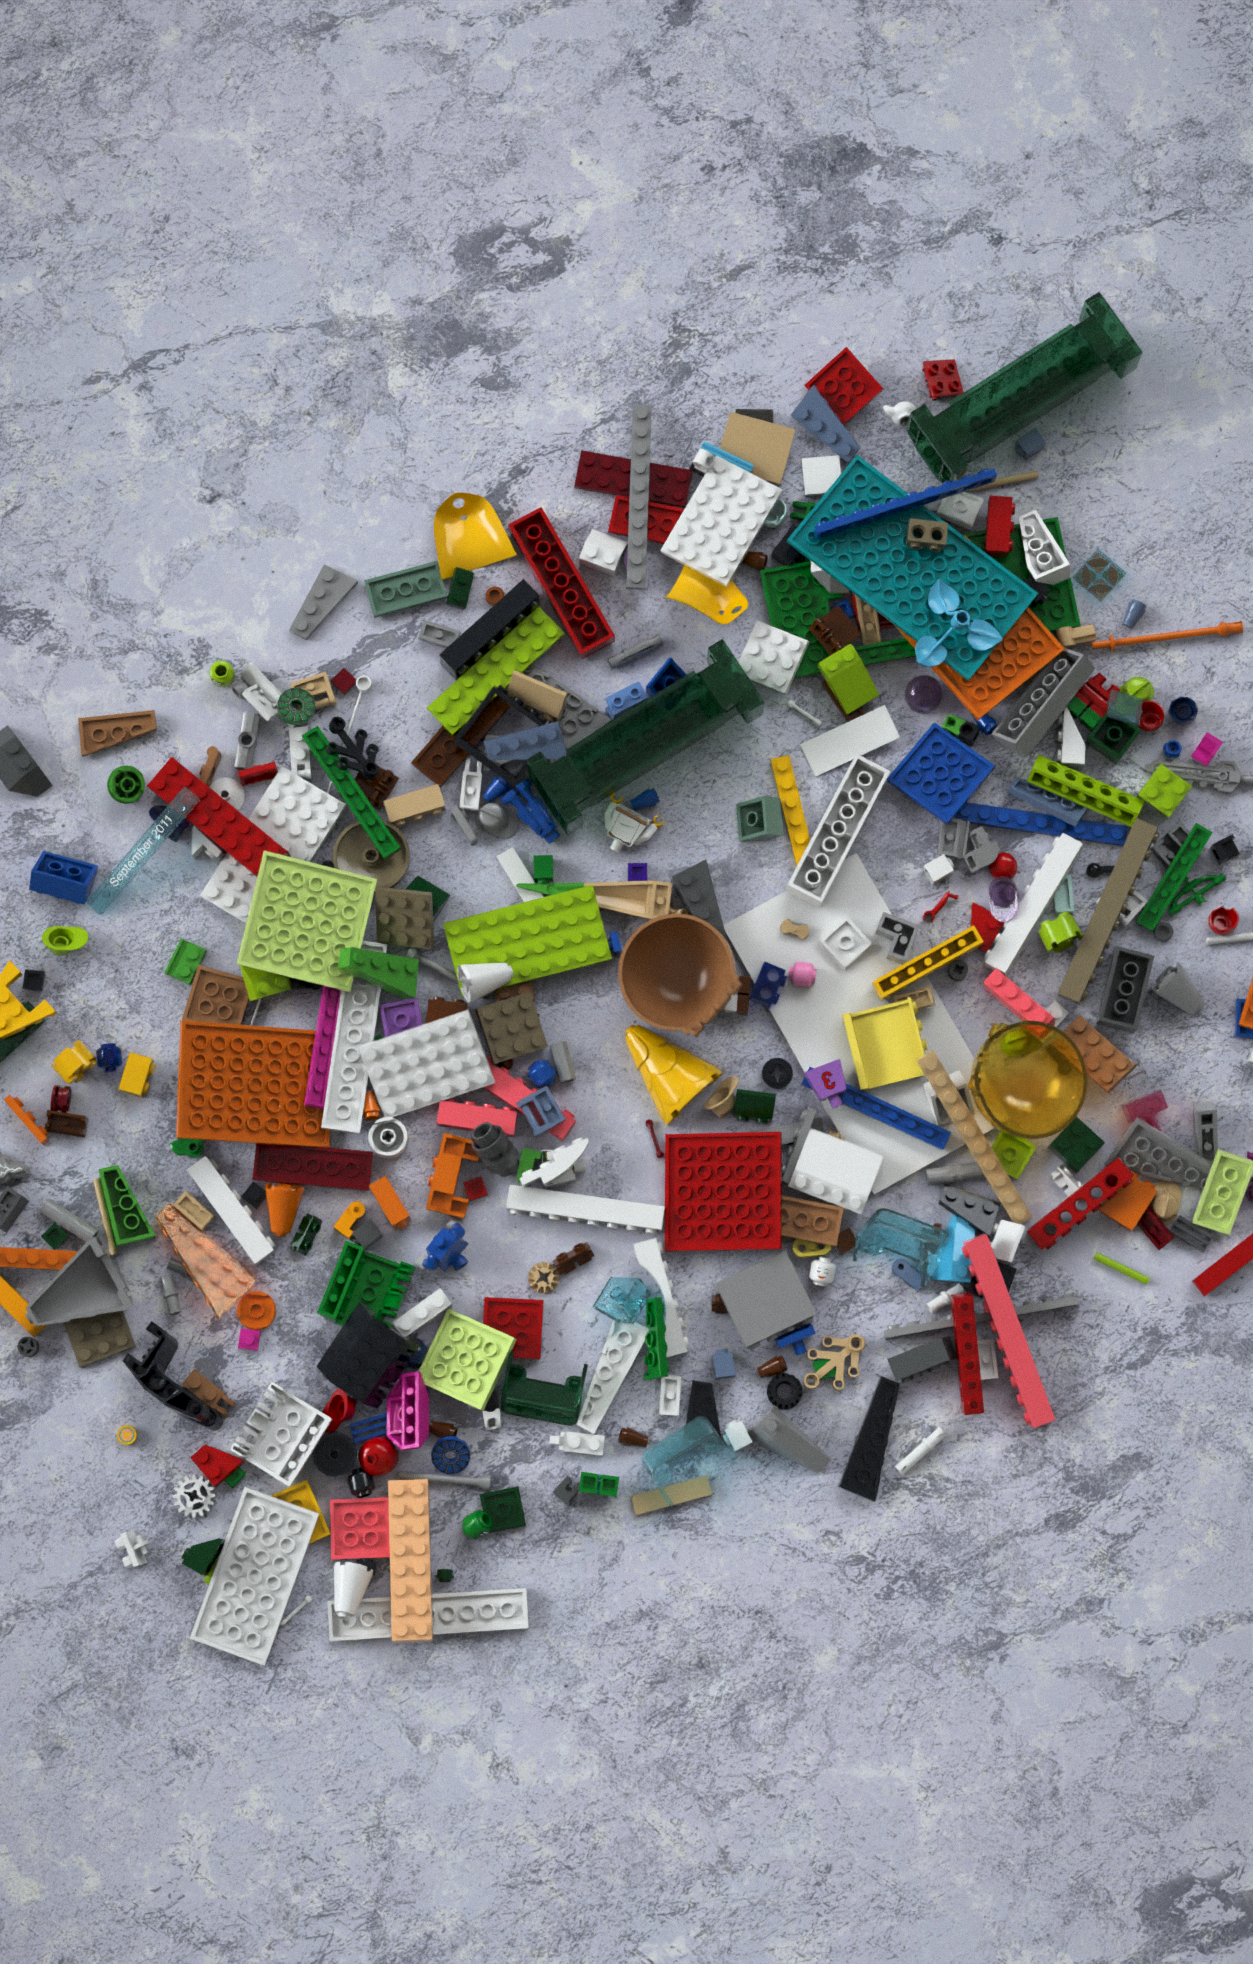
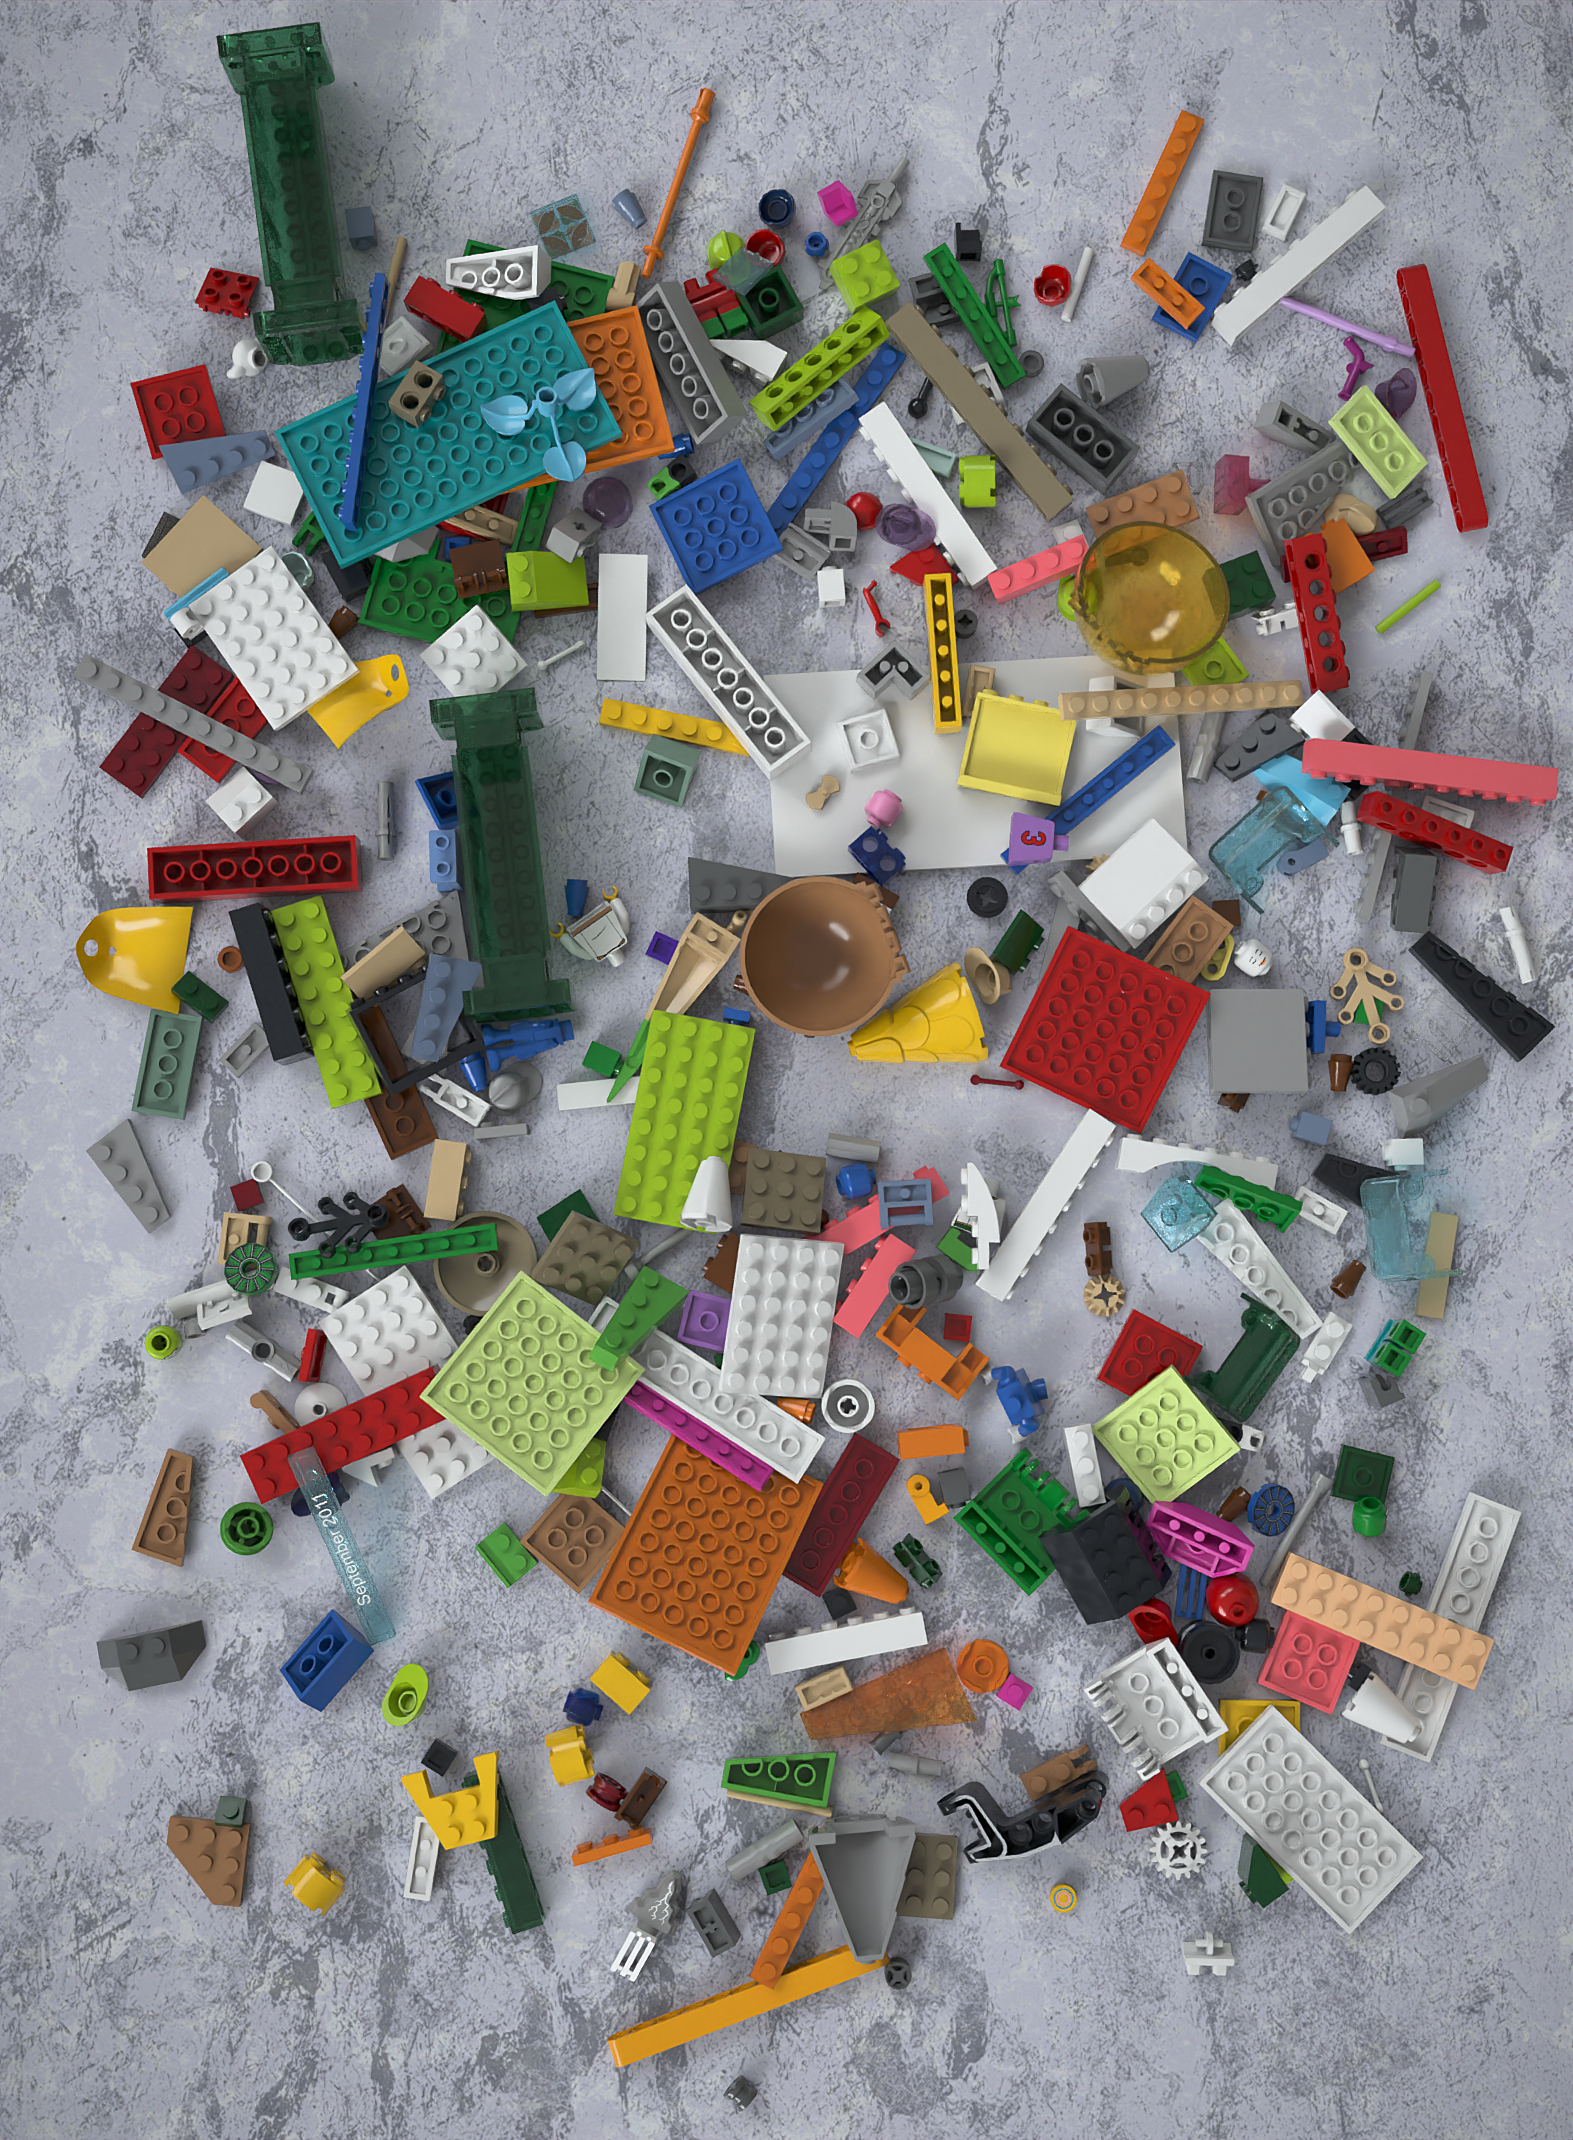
camera: 65 degrees left, 5 degrees up
(888, 682) = (574, 535): none -> light grey brick

